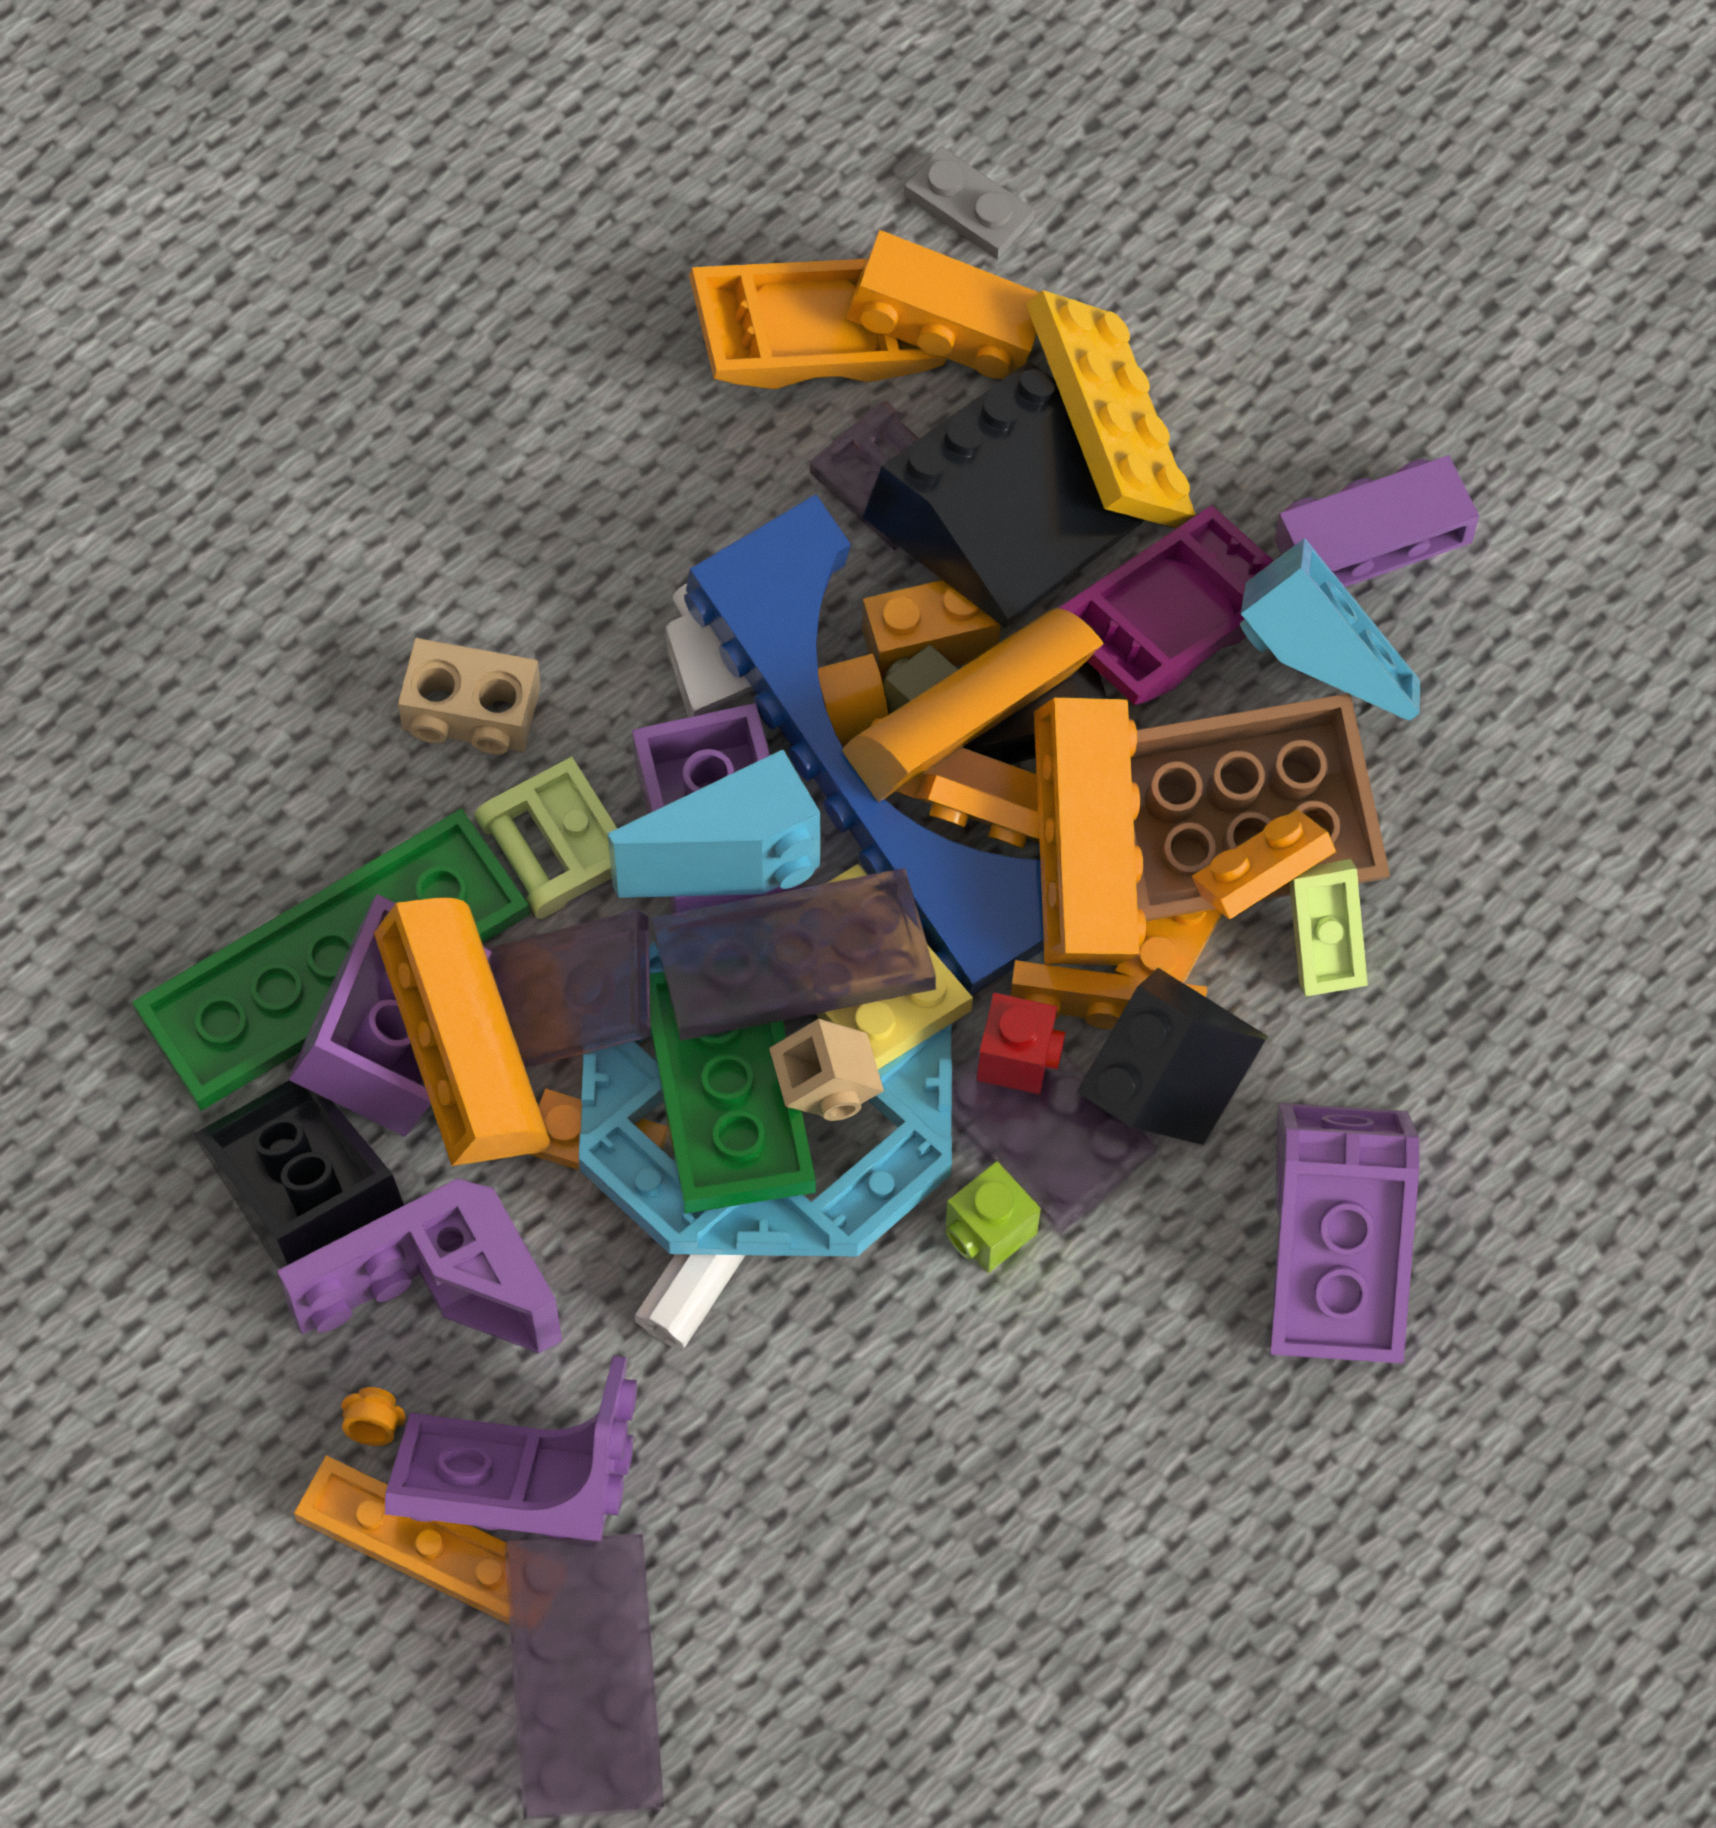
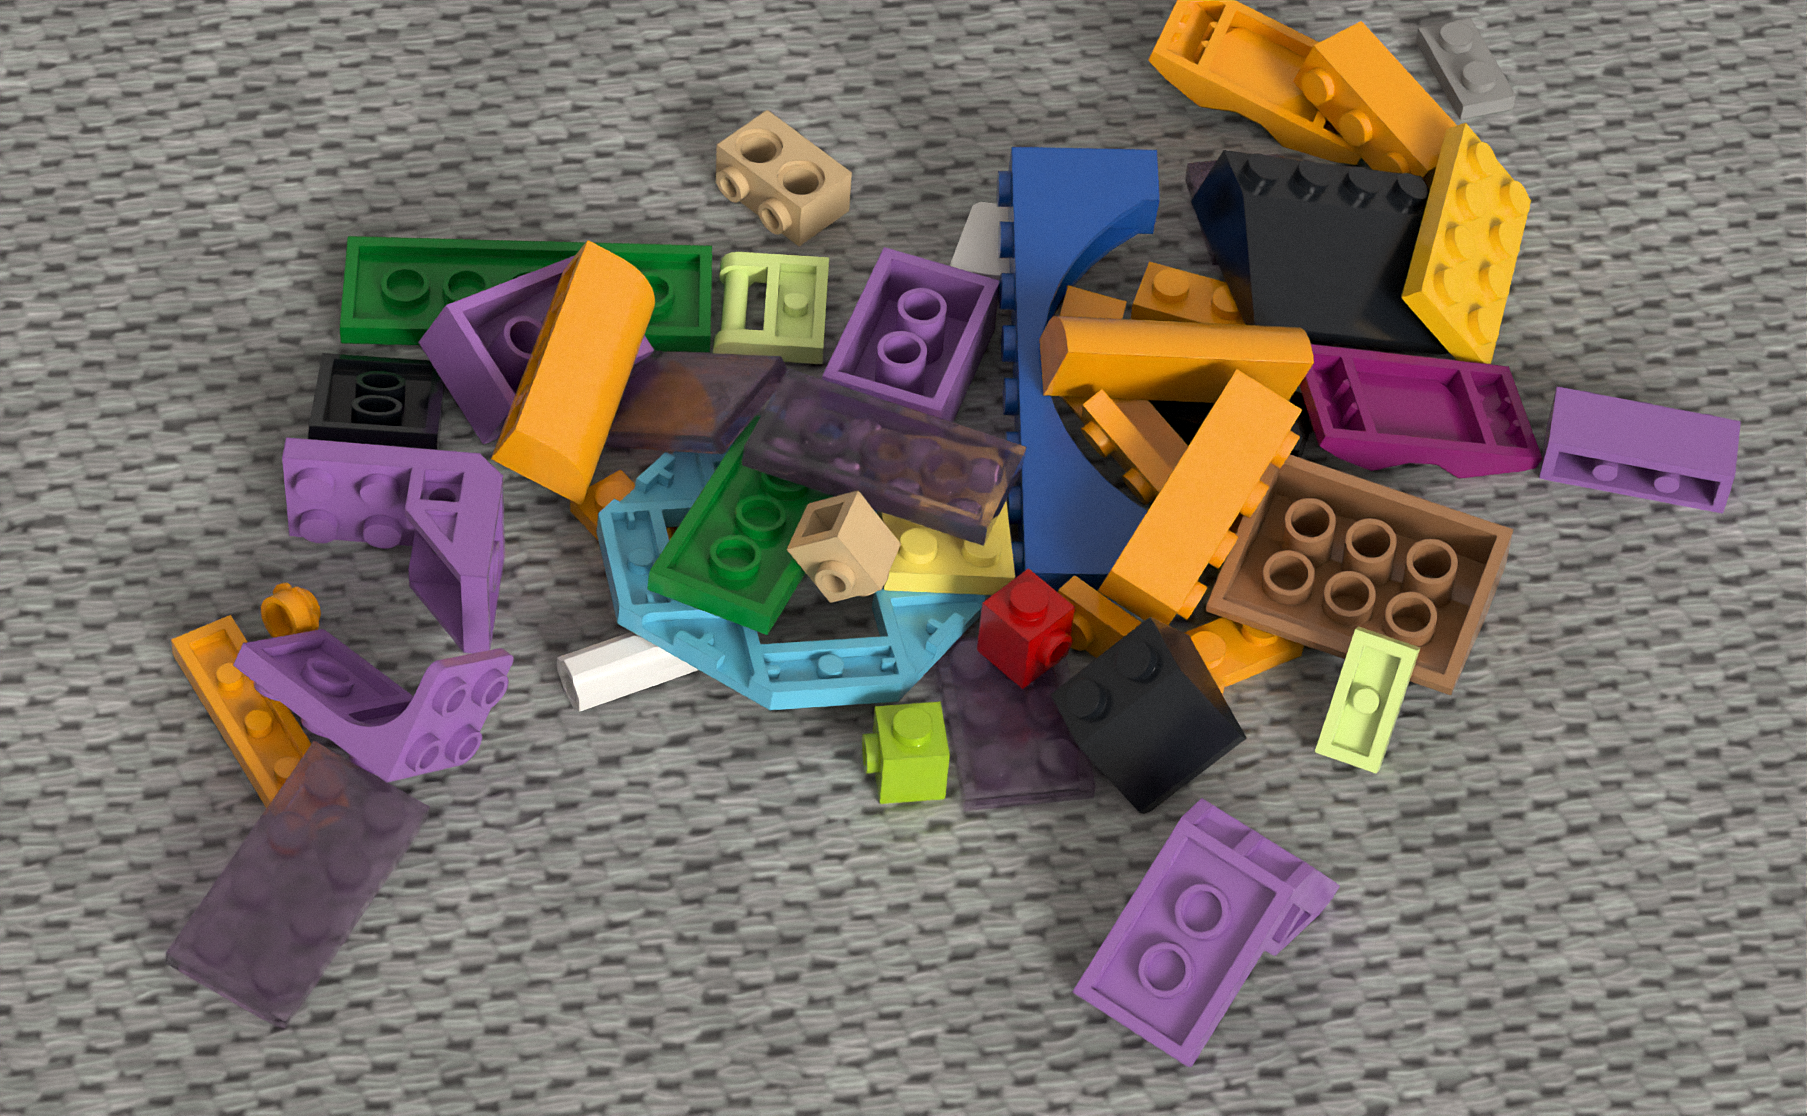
camera: 30 degrees right, 15 degrees down
(724, 839) = (879, 329): medium azure slope -> none
(1263, 863) = (1365, 606): light orange plate -> none
(1322, 631) = (1524, 465): medium azure slope -> none

